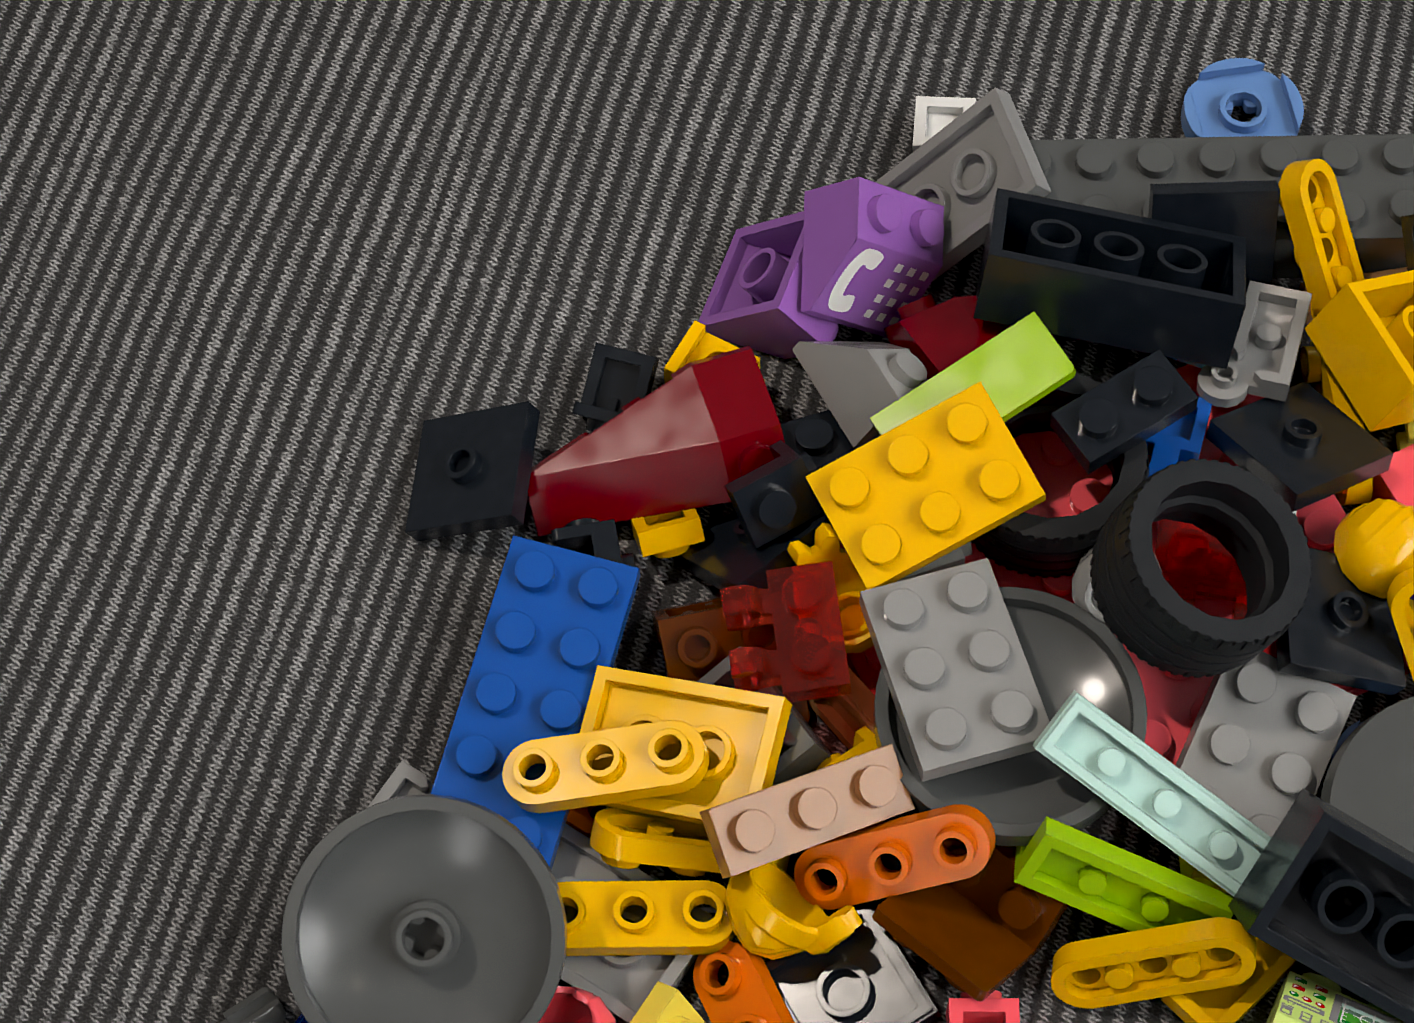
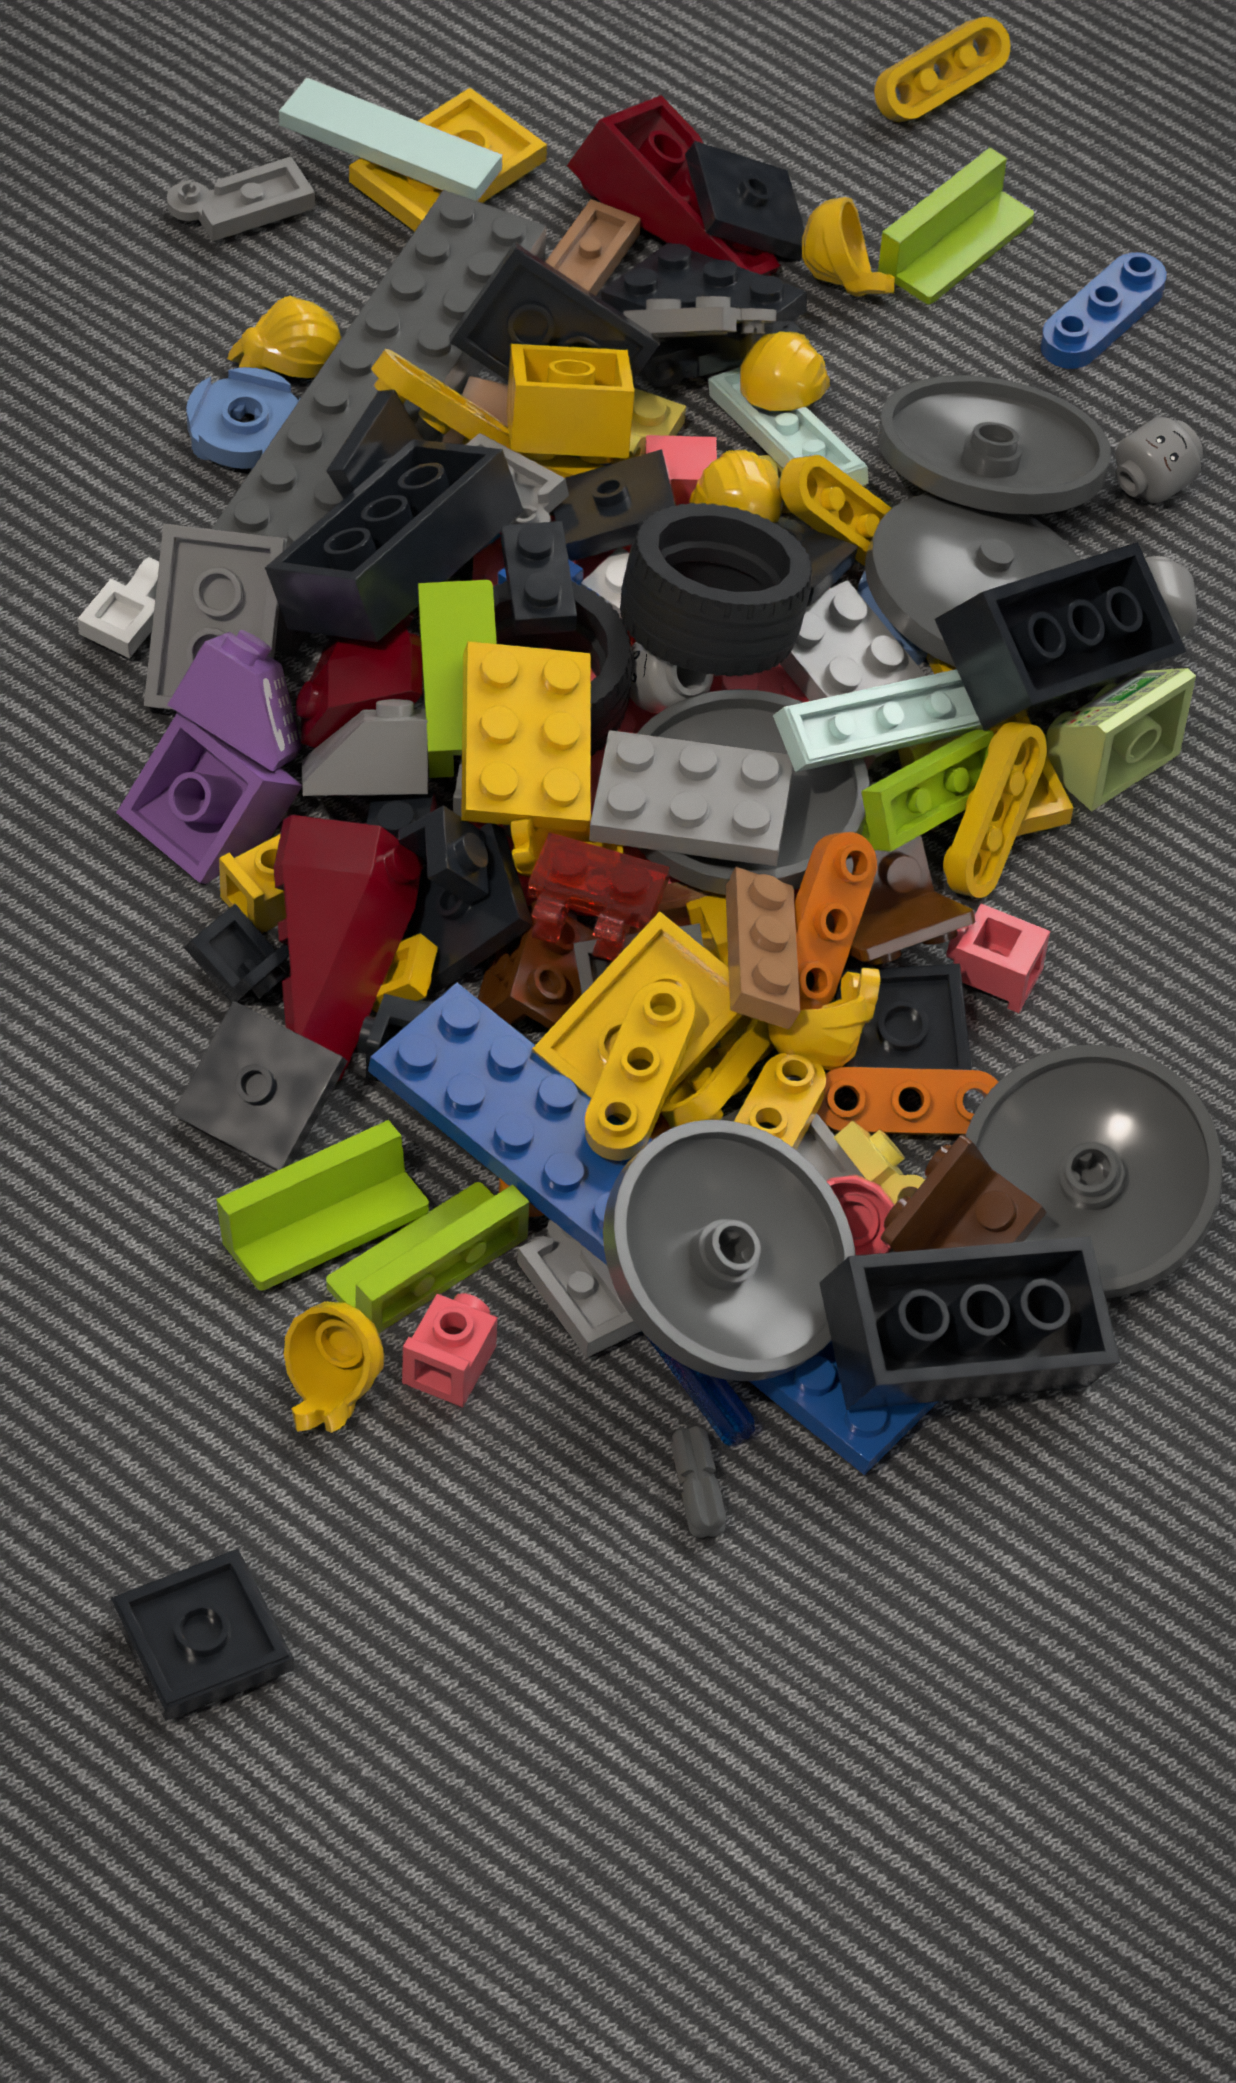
camera: 70 degrees left, 10 degrees down
(208, 670) = (332, 1363): none -> yellow piece
(280, 773) = (450, 1348): none -> coral brick
(368, 689) = (432, 1254): none -> lime panel
(377, 583) = (320, 1207): none -> lime panel
(1354, 100) = (289, 339): none -> yellow piece

